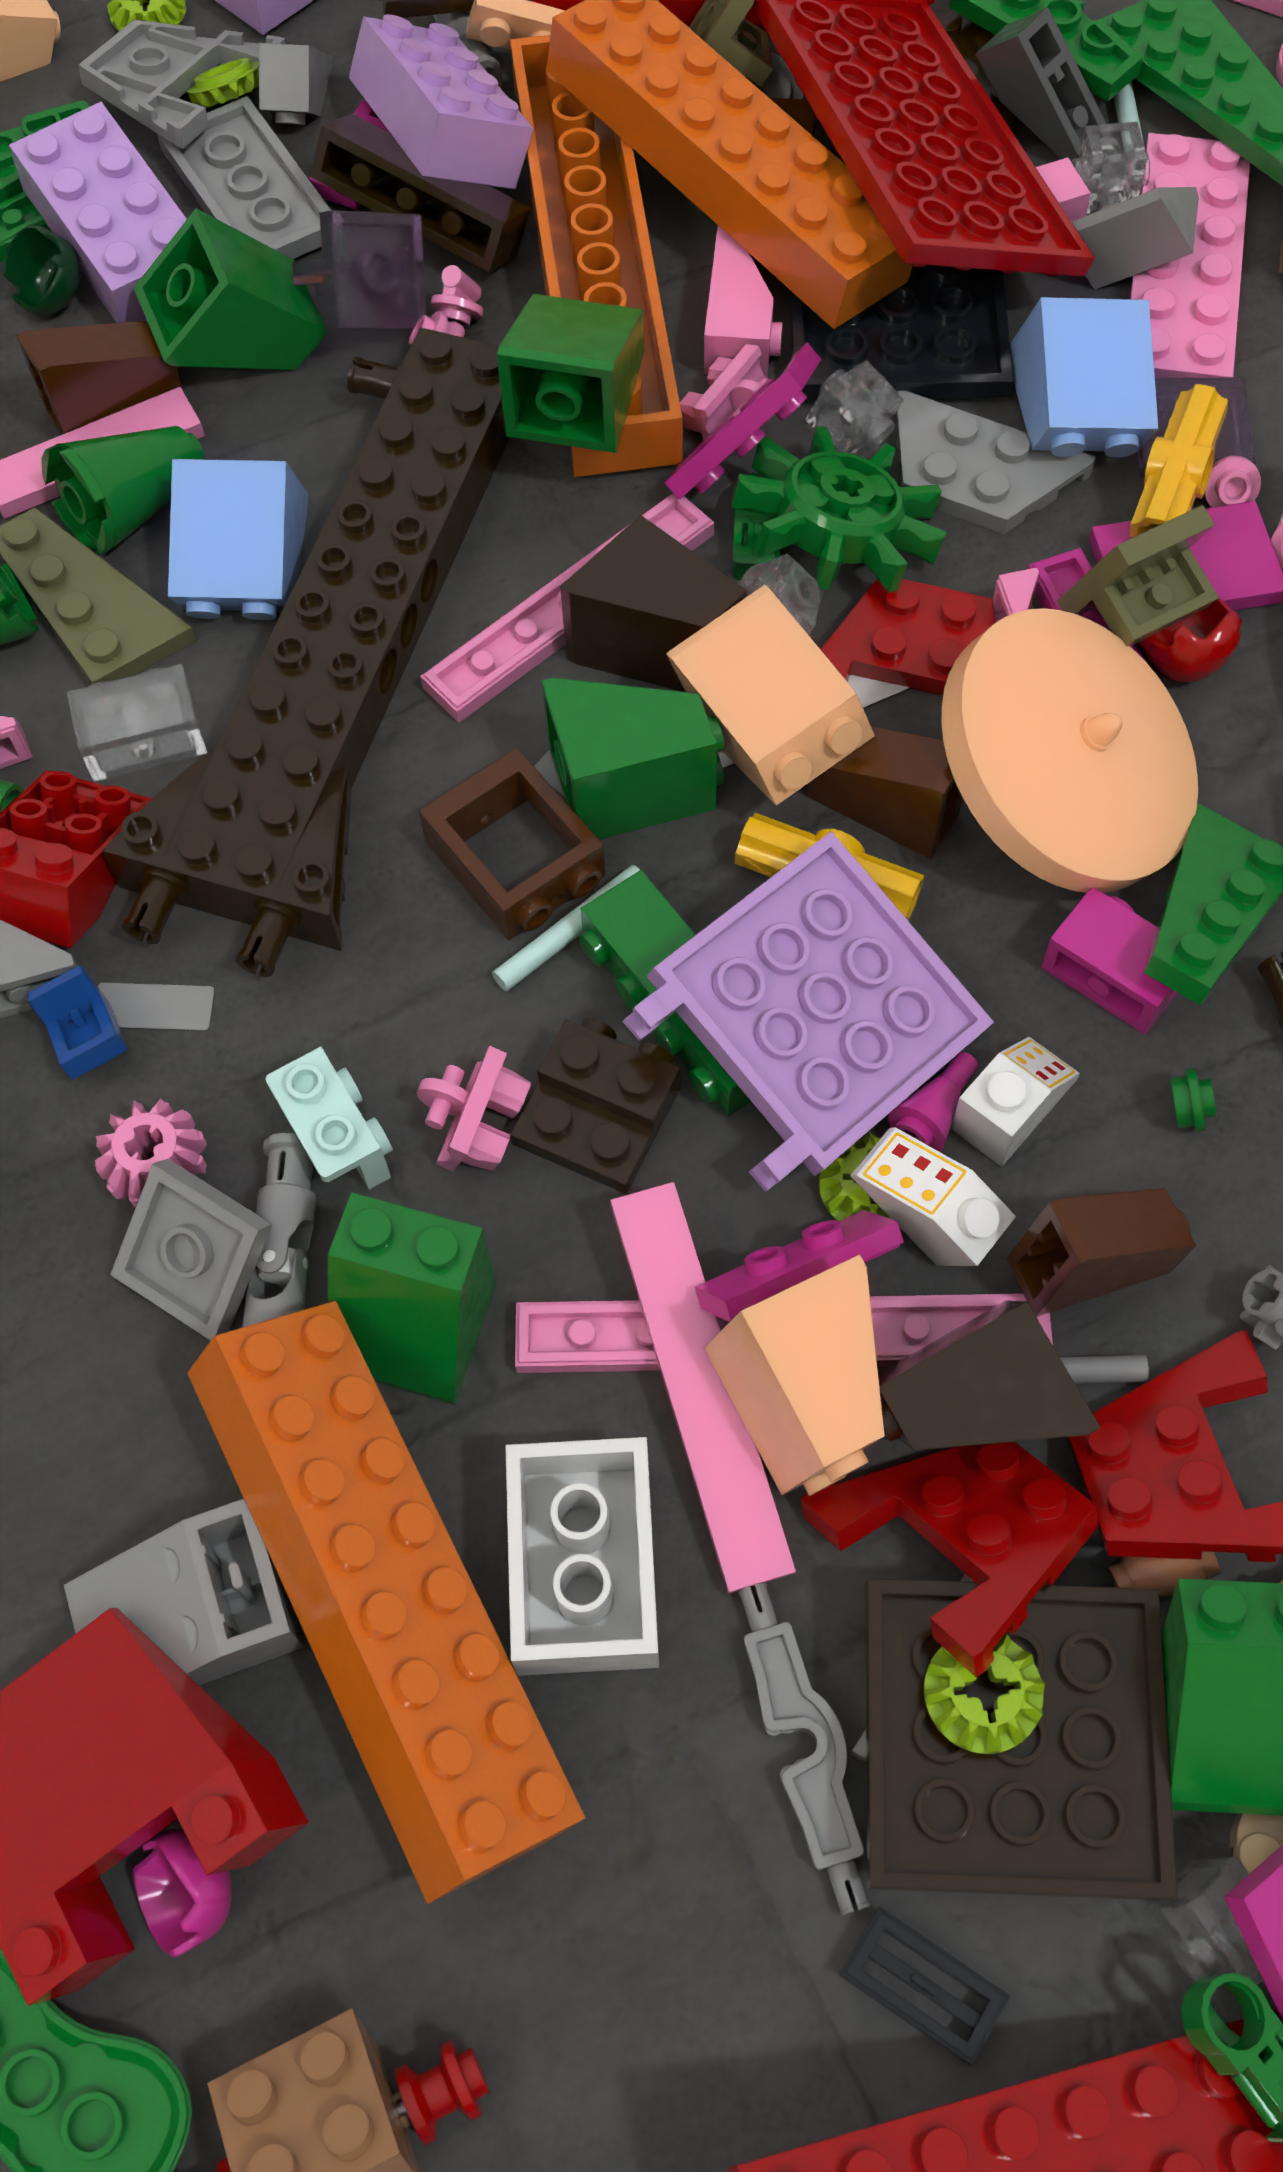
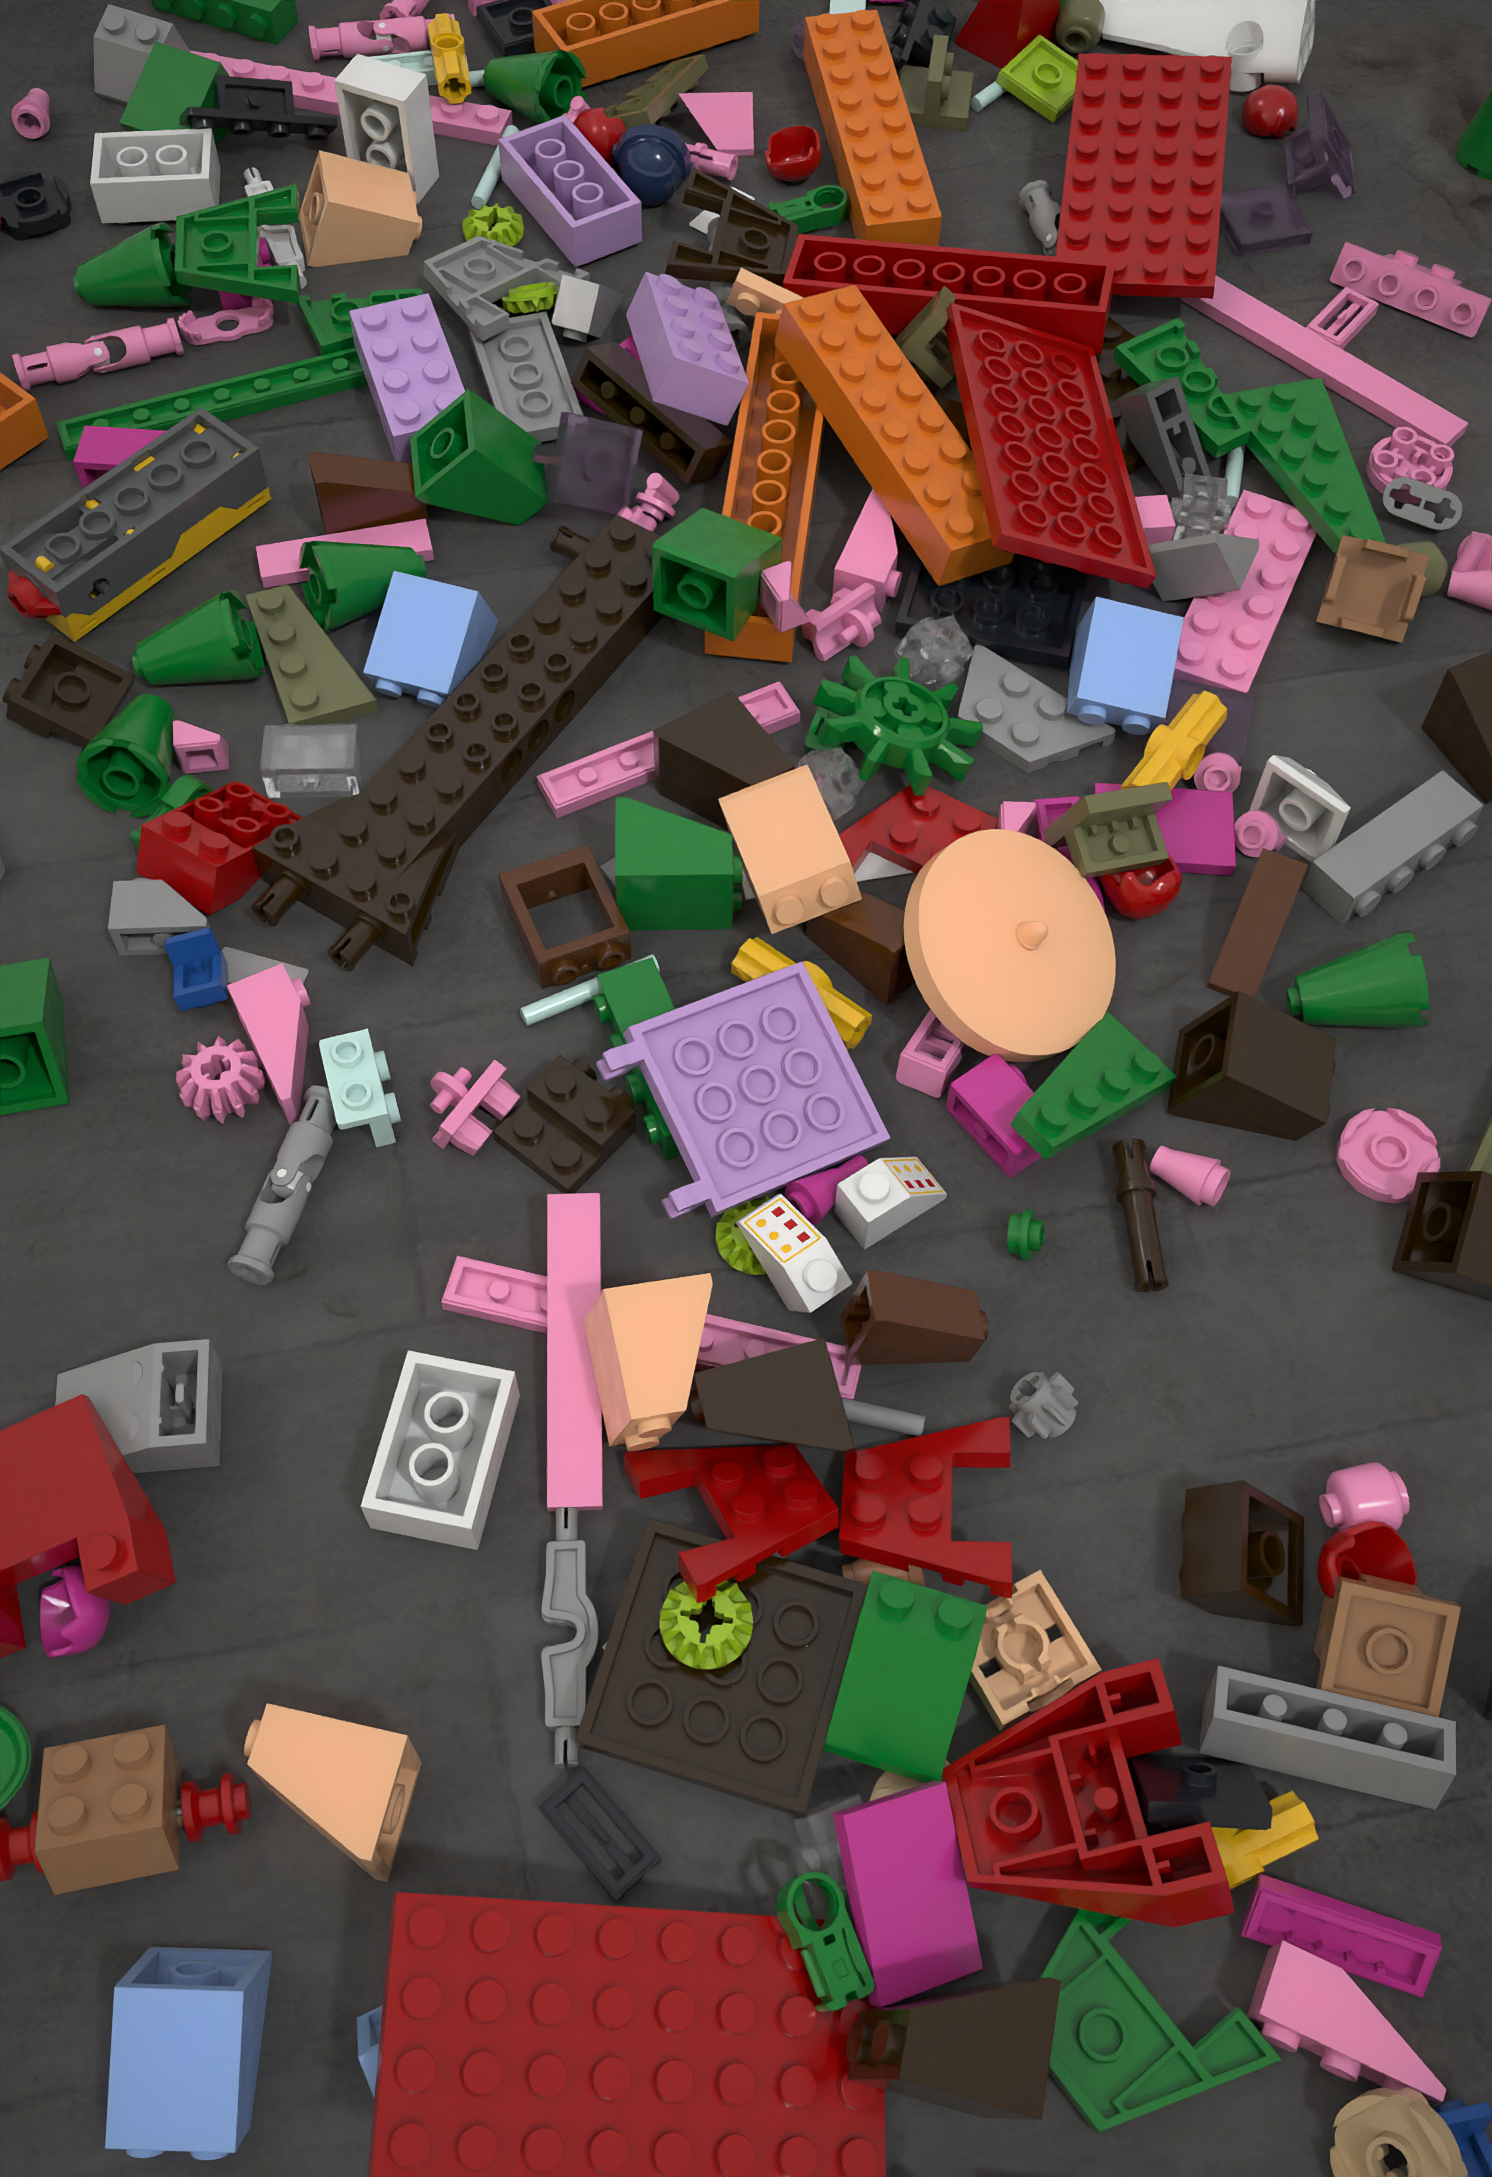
camera: 10 degrees right, 5 degrees down
(42, 270) = (349, 409): dark green hair -> none
(190, 1249) = (225, 1154): light grey plate -> none
(197, 1067) = (278, 1029): none -> bright pink slope
(383, 1598) = (282, 1439): orange brick -> none
(411, 1293) = (372, 1227): green slope -> none
(588, 2019) = (339, 1778): none -> light nougat slope
(655, 384) = (778, 599): none -> bright pink slope
(743, 432) = (838, 645): dark pink wing -> none
(779, 1268) = (725, 1270): dark pink plate -> none
(1002, 927) = (926, 1071): none -> bright pink slope

